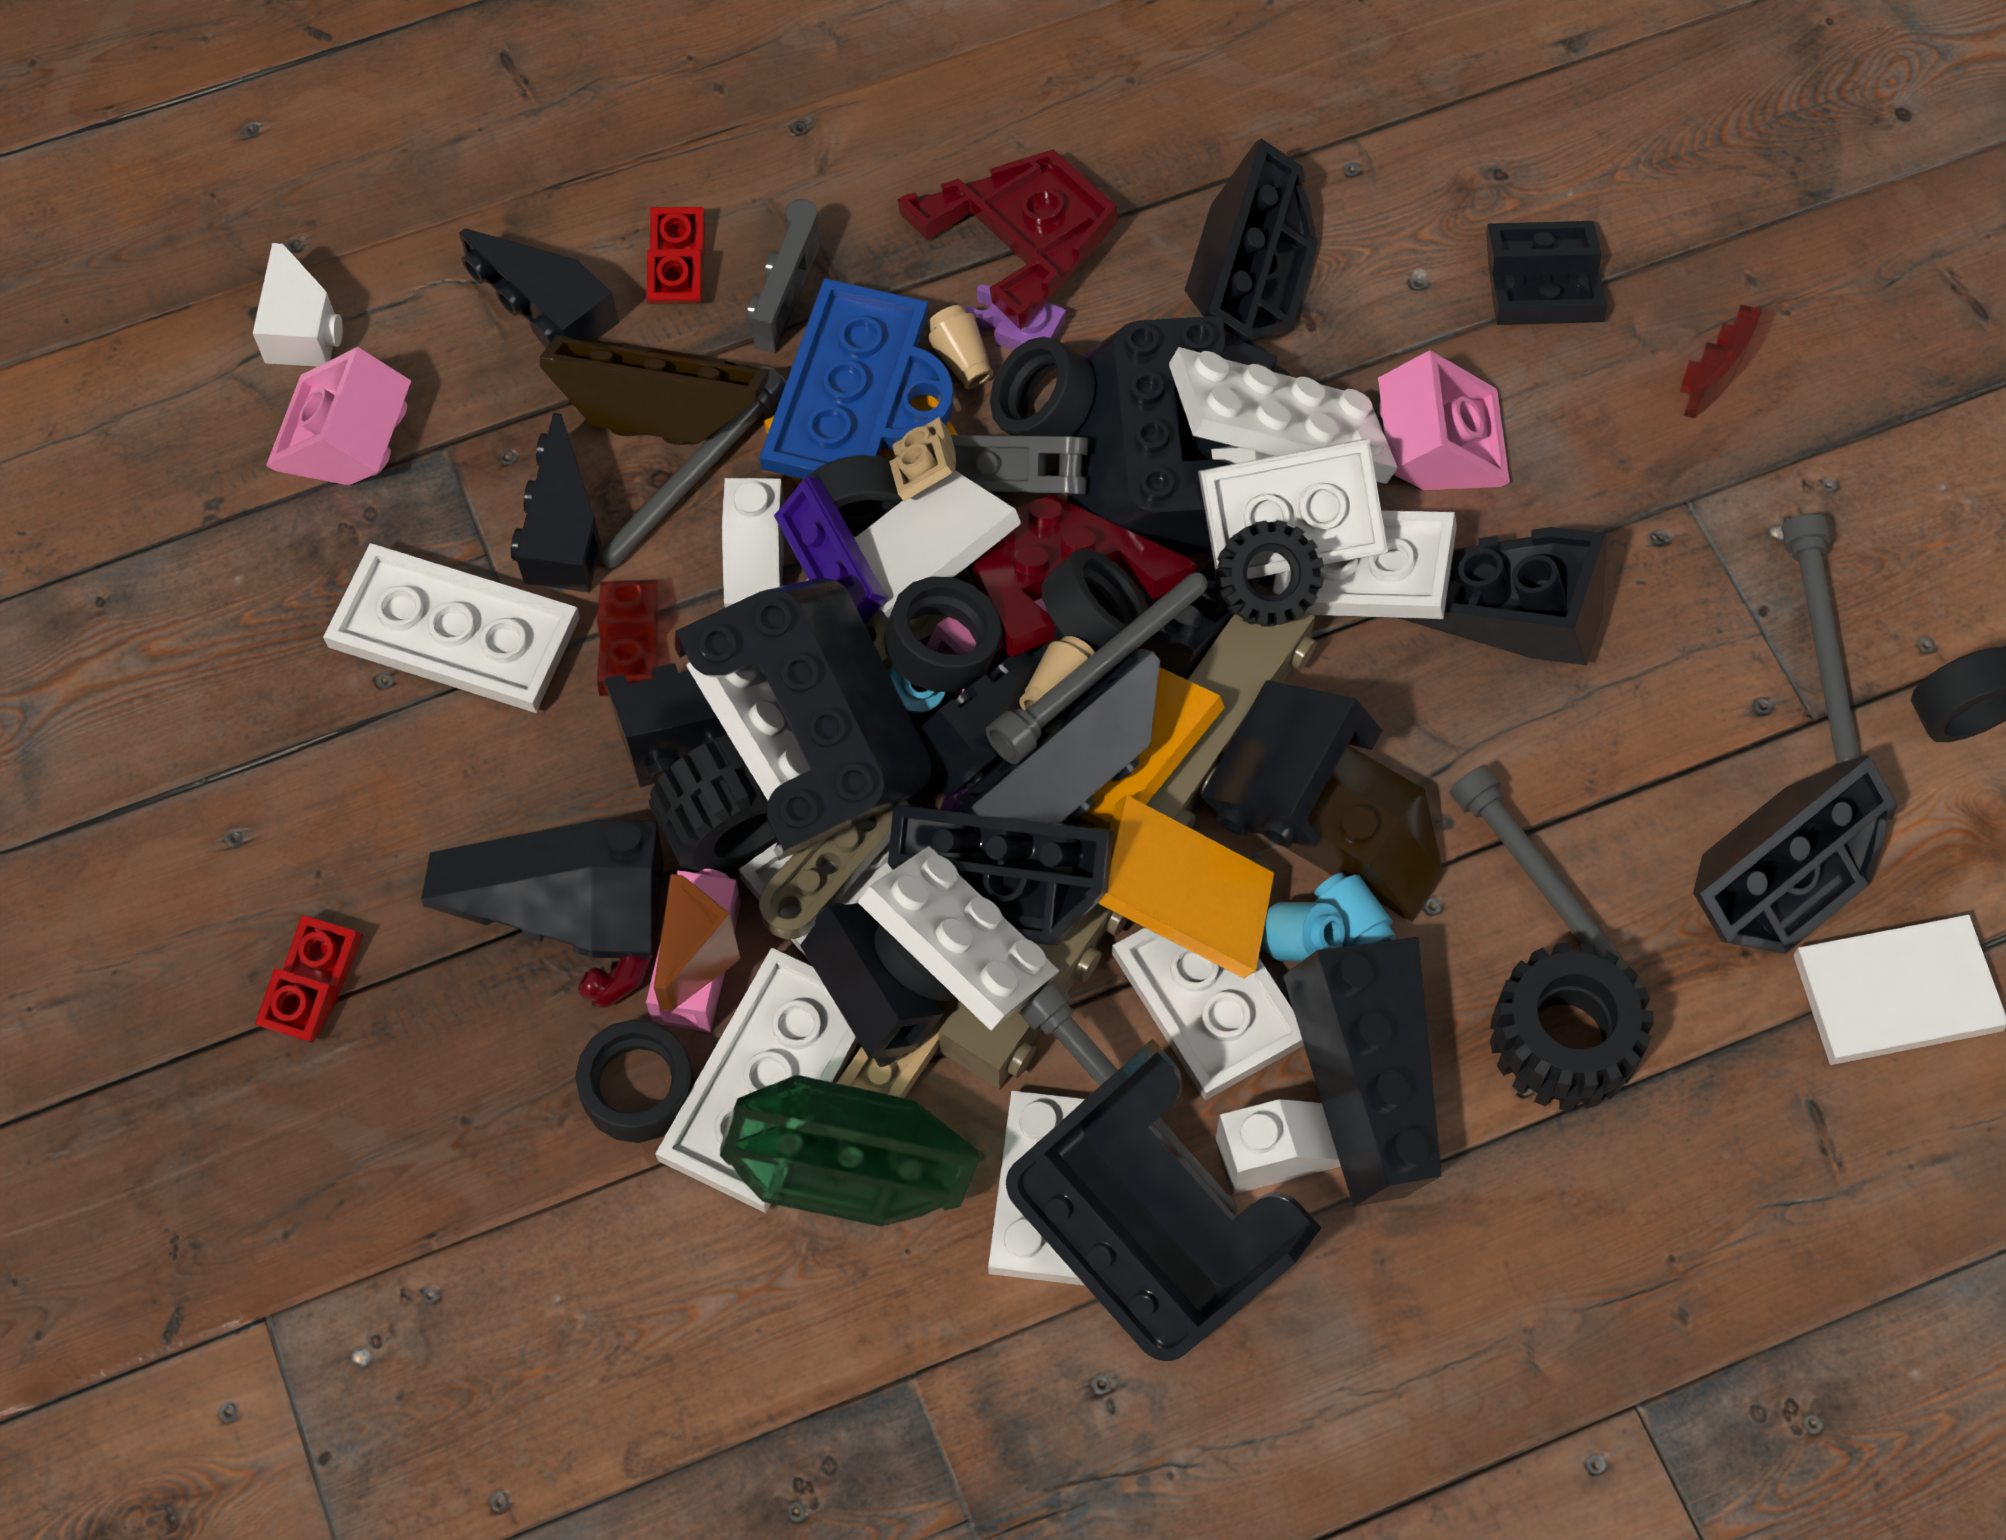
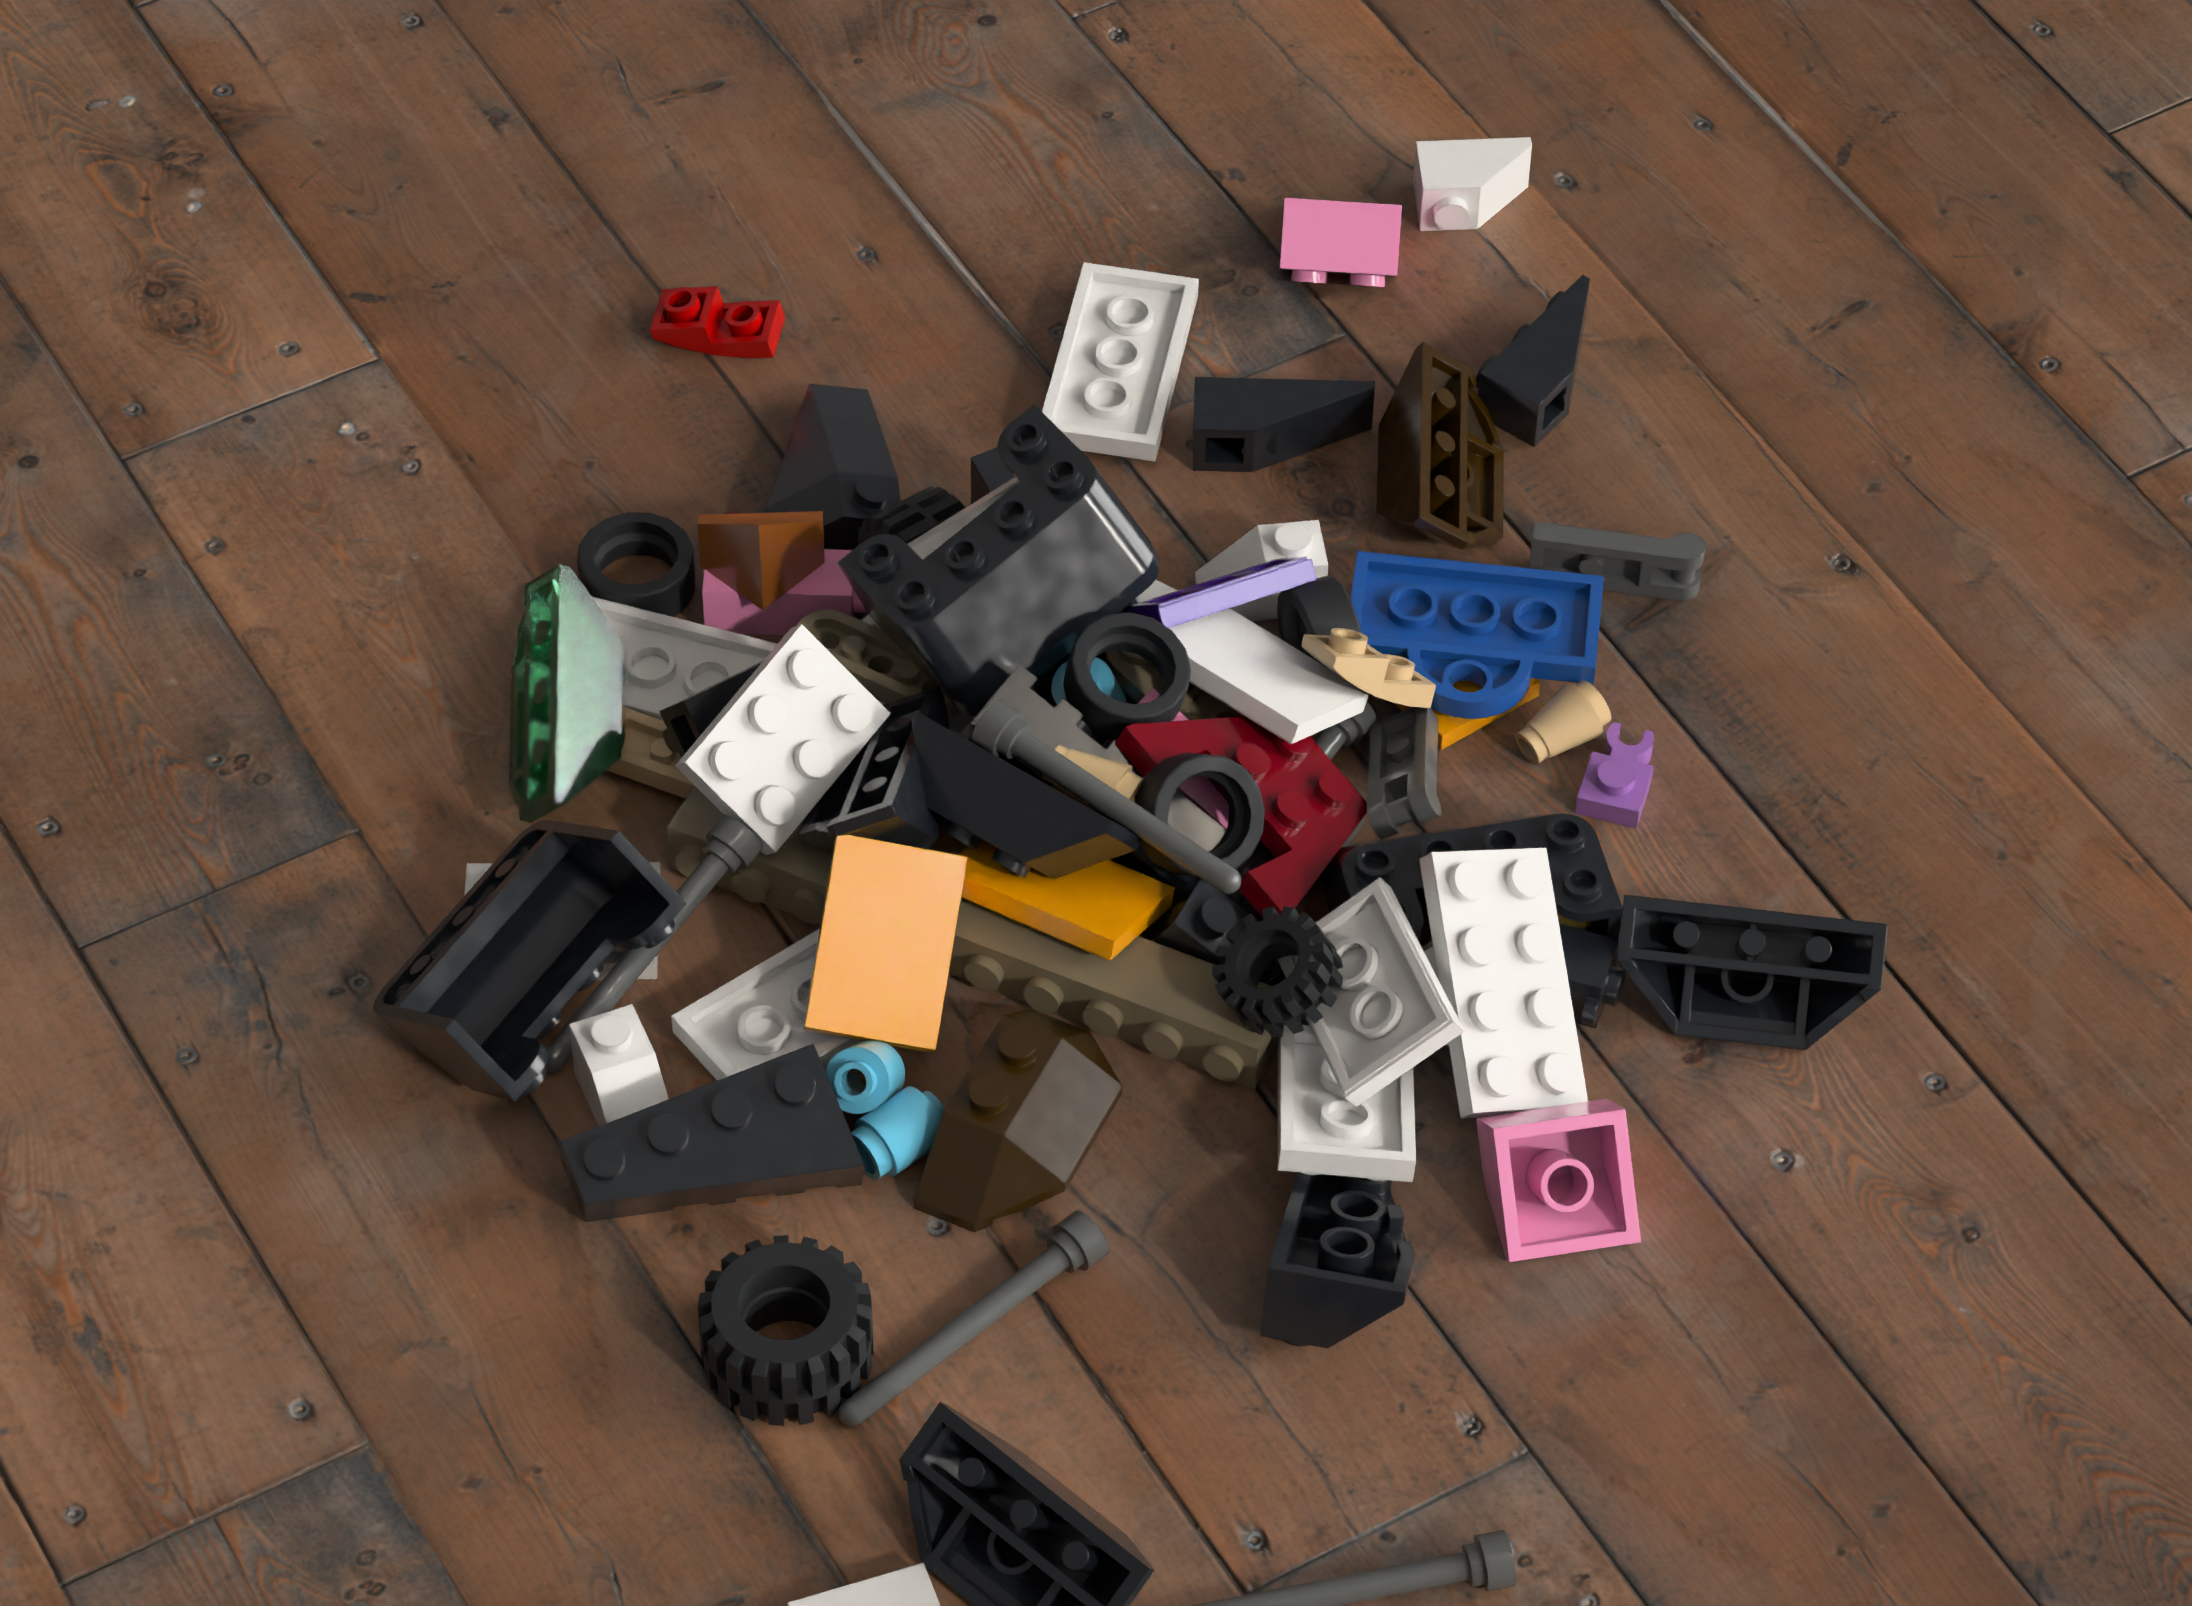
camera: 80 degrees right, 15 degrees down
(627, 631) = (1161, 495): clear red slope -> none
(676, 255) = (1639, 476): red slope -> none
(691, 473) = (1343, 518): dark grey piece -> none
(1021, 375) = (1501, 783): black tyre -> none
(1034, 208) = (1754, 775): dark red wing -> none
(1285, 760) = (1104, 1027): black panel -> none
(1545, 272) = (1824, 1278): black slope -> none
(1719, 362) = (1699, 1449): clear red slope -> none

